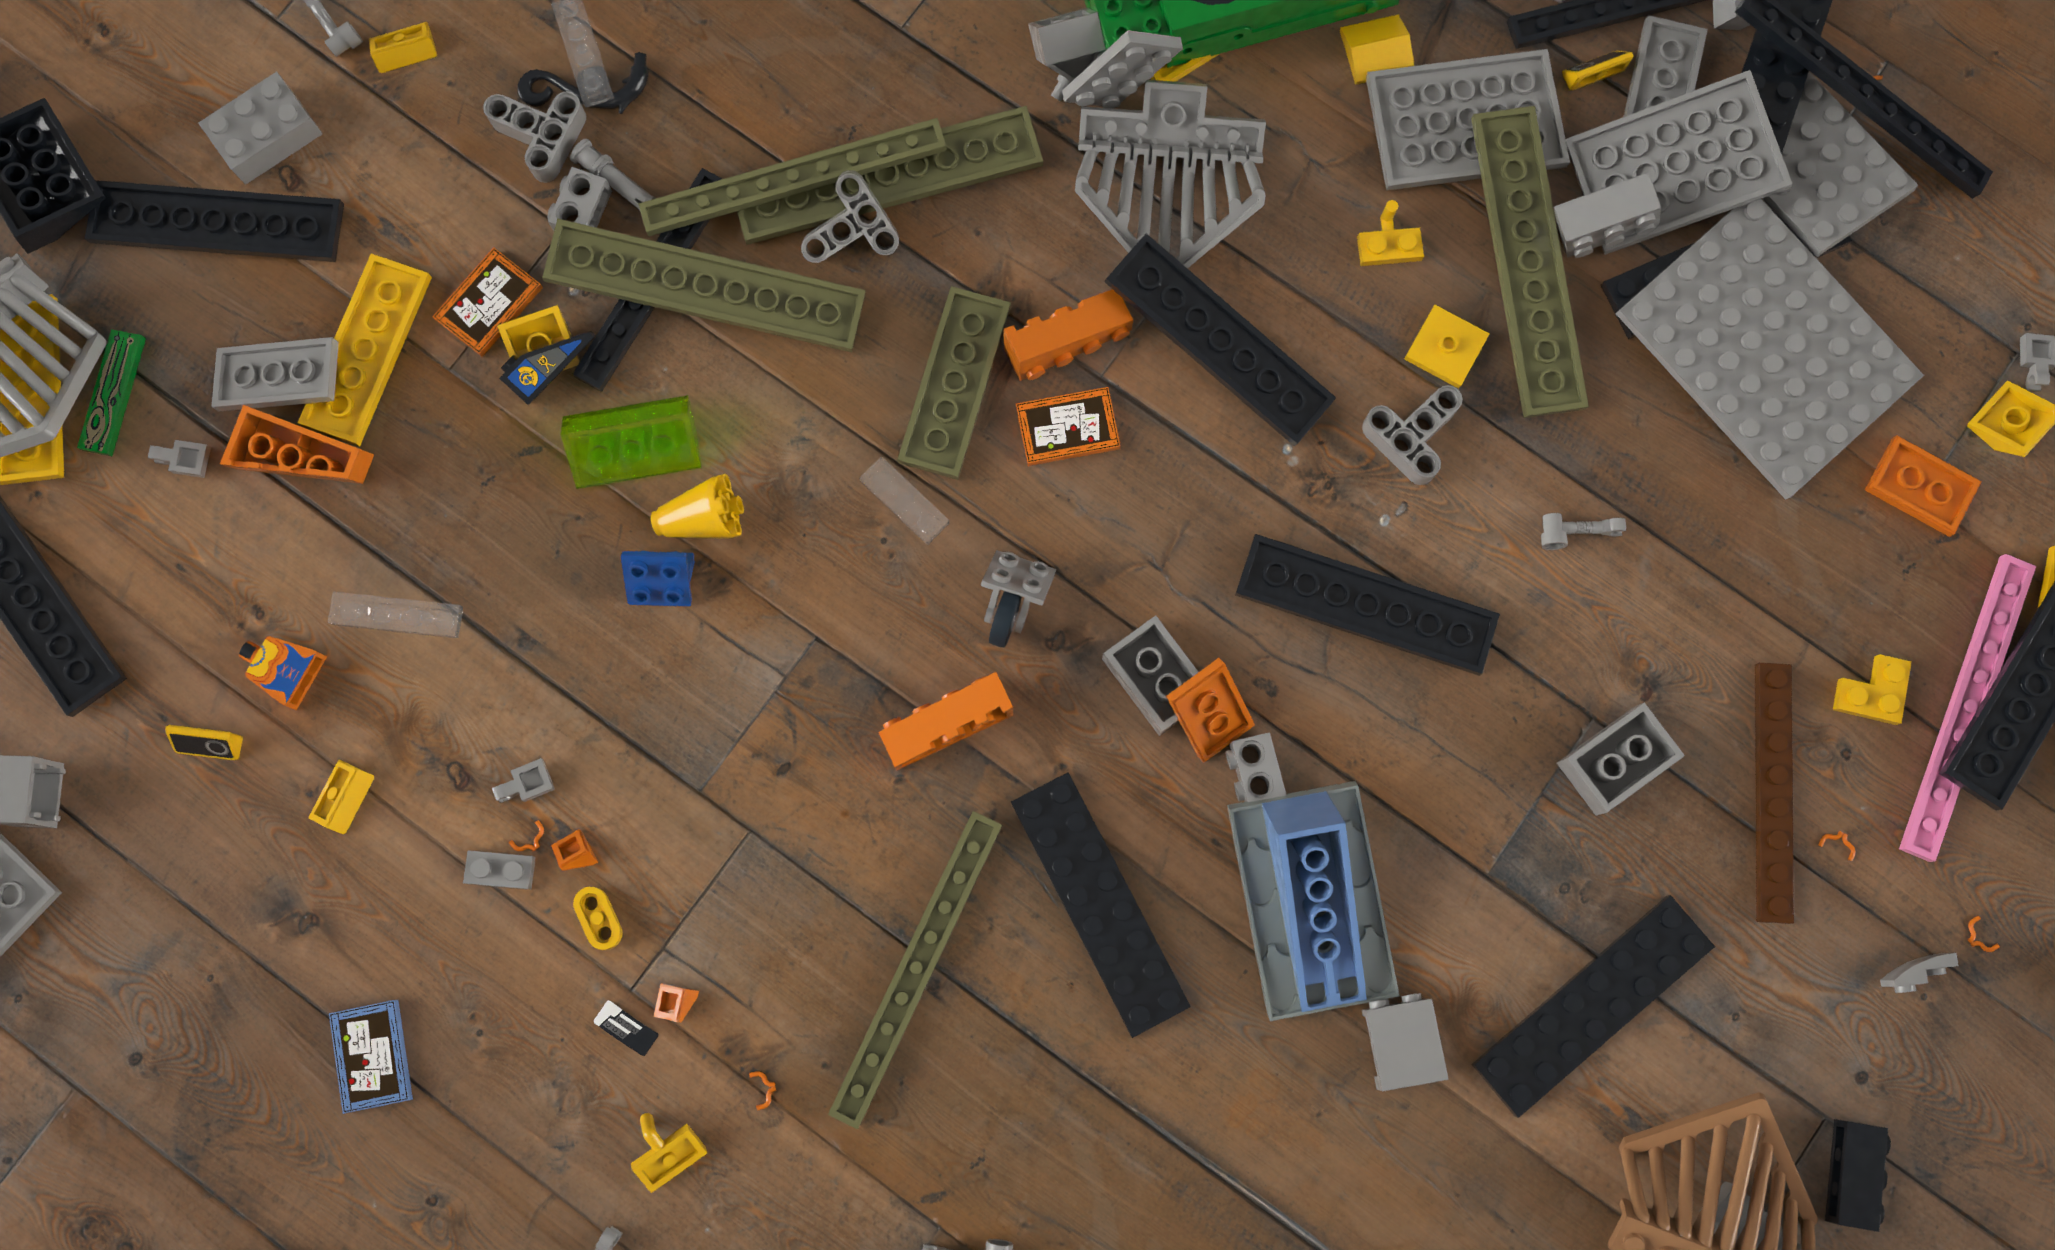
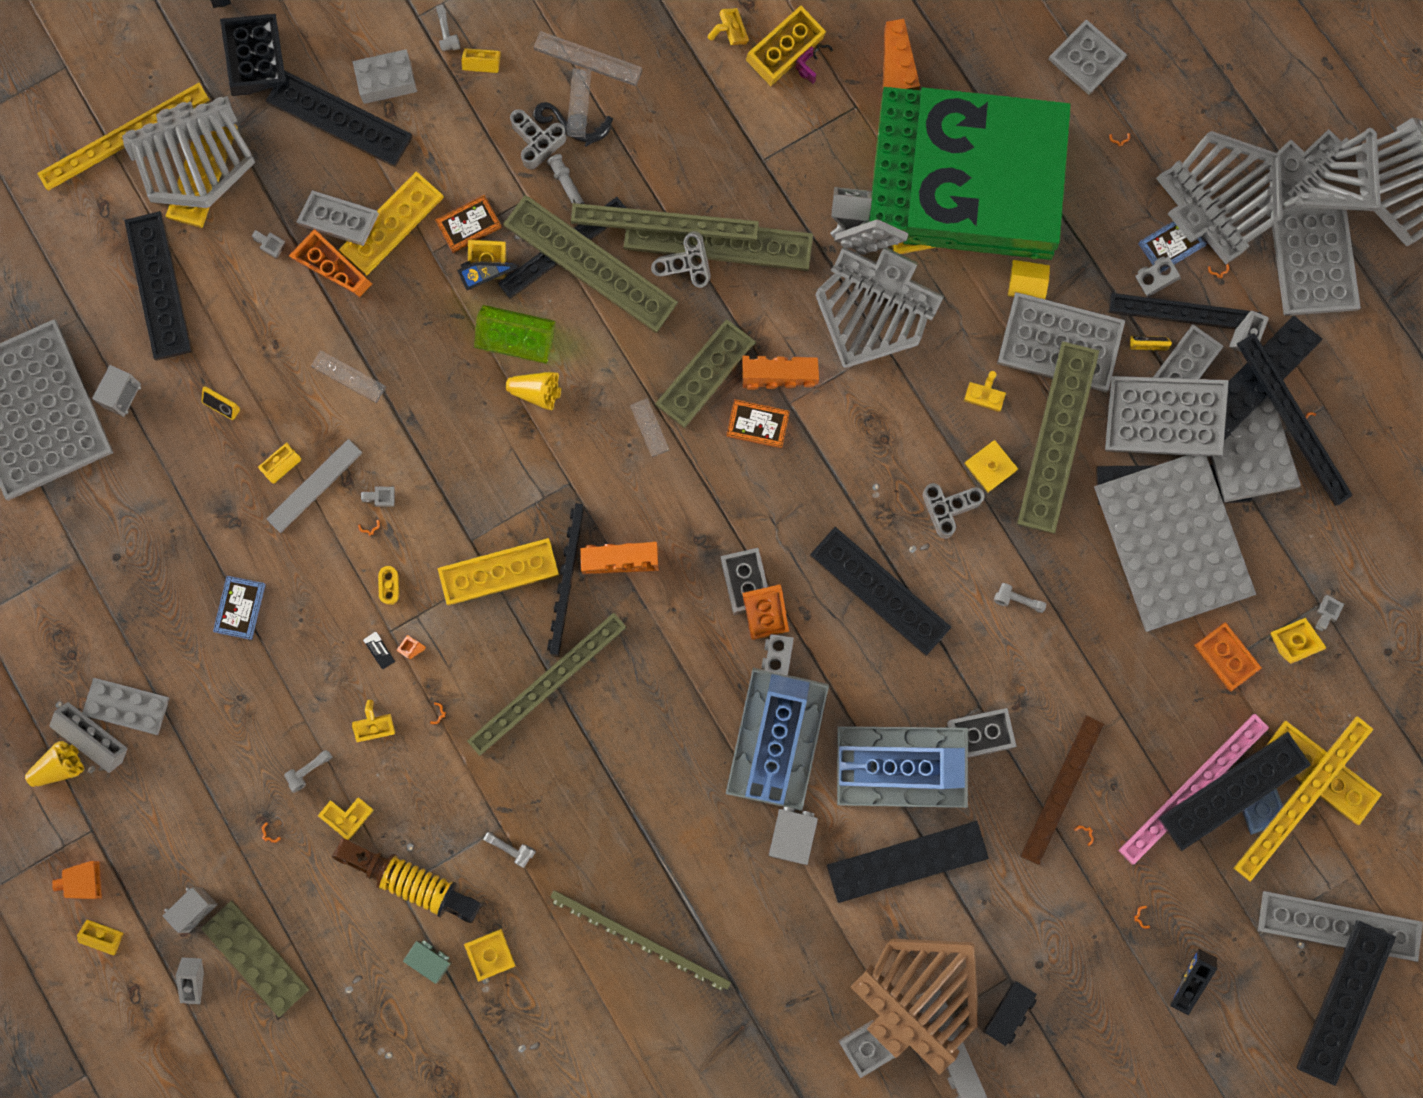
camera: 25 degrees right, 0 degrees up
(111, 393) = (246, 191): green tile -> none
(282, 669) = (276, 380): torso -> none
(412, 810) = (314, 486): none -> light grey tile
(499, 870) = (347, 537): light grey plate -> none
(573, 851) = (390, 544): orange slope -> none
(587, 206) = (545, 193): light grey brick -> none
(658, 577) = (497, 414): blue bracket -> none
(762, 823) = (498, 571): none -> yellow plate
(878, 804) = (564, 588): none -> black plate
(1018, 580) = (693, 500): light grey plate -> none
(1100, 905) = (661, 692): black plate -> none
(1220, 339) = (862, 410): black plate -> none
(1525, 861) = (902, 766): none -> piece
(1608, 216) = (1111, 430): light grey brick -> none
(1882, 698) = (1146, 764): yellow plate -> none
(1916, 971) = (1088, 920): light grey slope -> none

